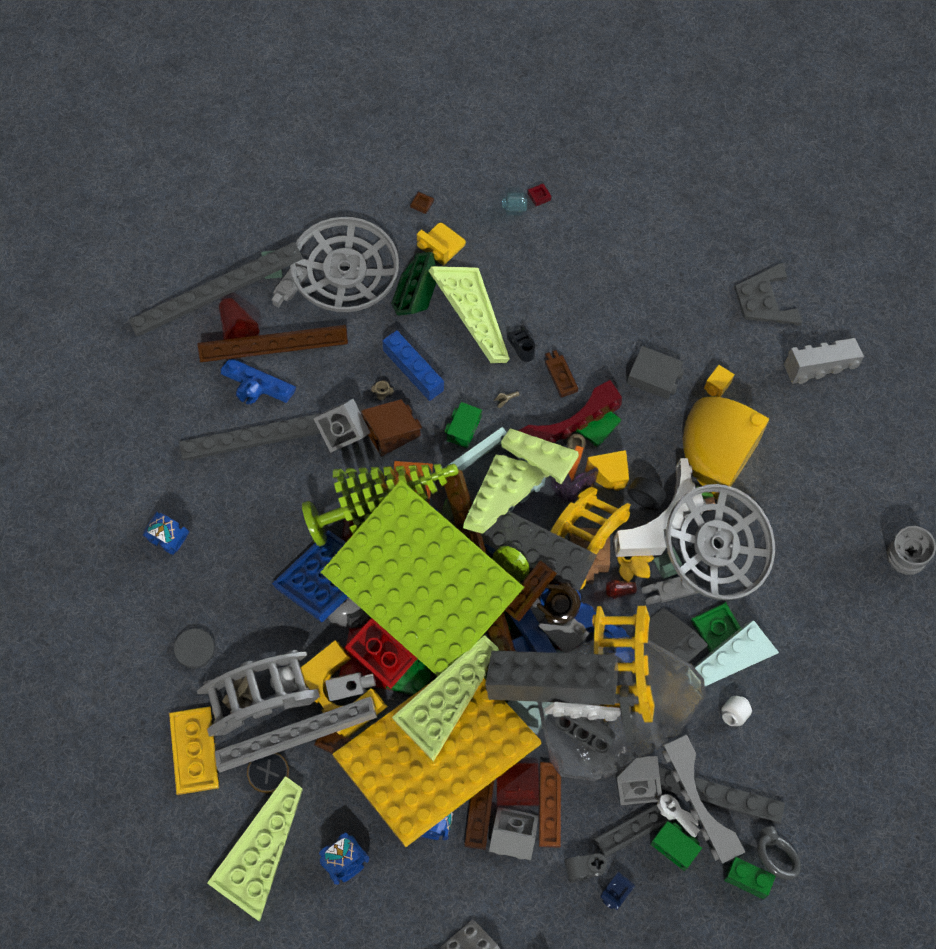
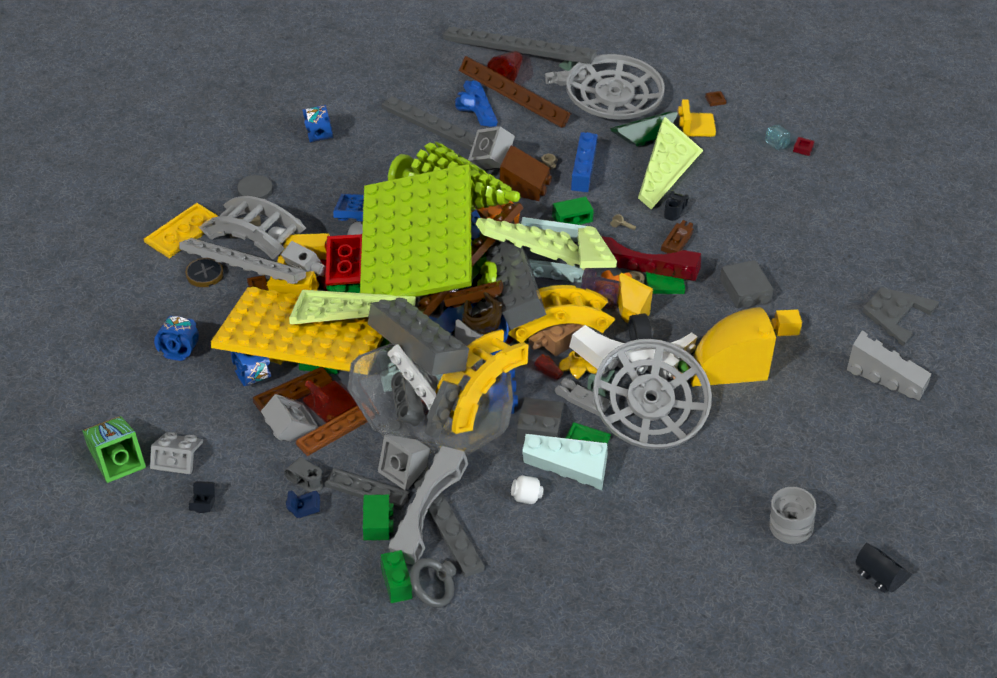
camera: 50 degrees right, 20 degrees down
(253, 861) = (132, 300): yellowish green wing -> none
(671, 809) = (403, 493): white piece -> none

